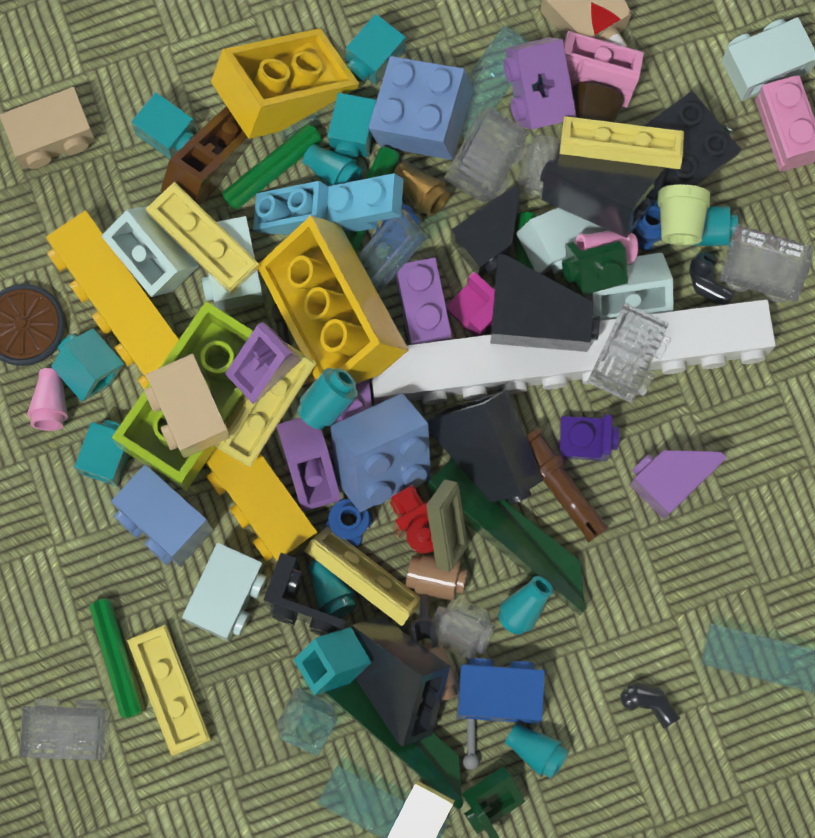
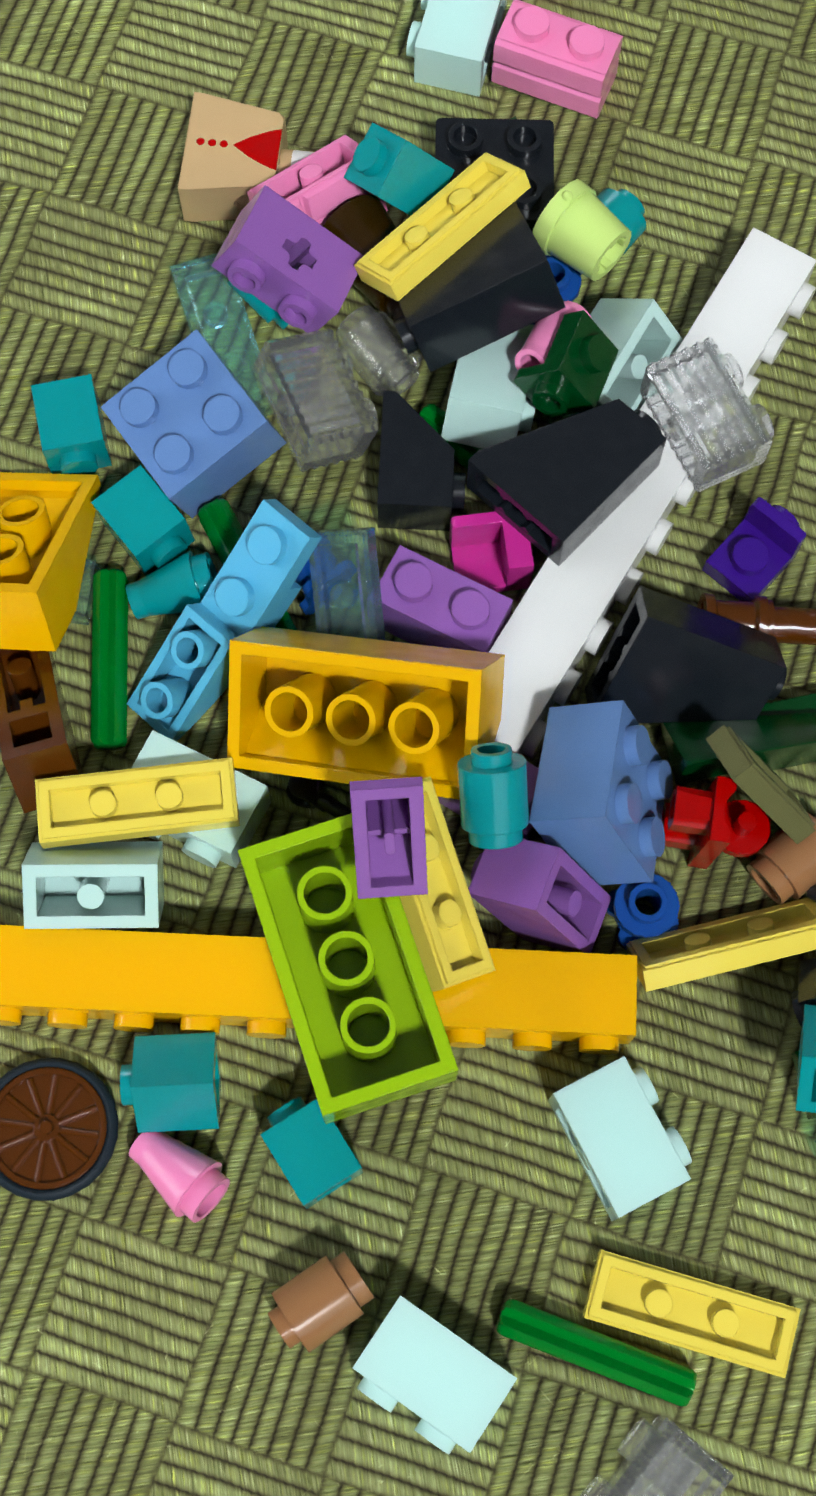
camera: 50 degrees left, 5 degrees down
(39, 511) = (319, 1302): none -> medium nougat brick
(45, 588) = (432, 1375): none -> light aqua brick
(162, 515) = (465, 1139): medium blue brick -> none
(187, 407) = (367, 979): tan brick -> none
(286, 584) = (675, 1042): black bracket -> none
(331, 593) = (719, 1001): teal cone -> none
(422, 189) = (302, 495): pearl gold cone -> none
(637, 96) = (396, 170): none -> teal brick
(705, 282) = (665, 287): black arm -> none
(766, 264) = (706, 201): clear brick -> none

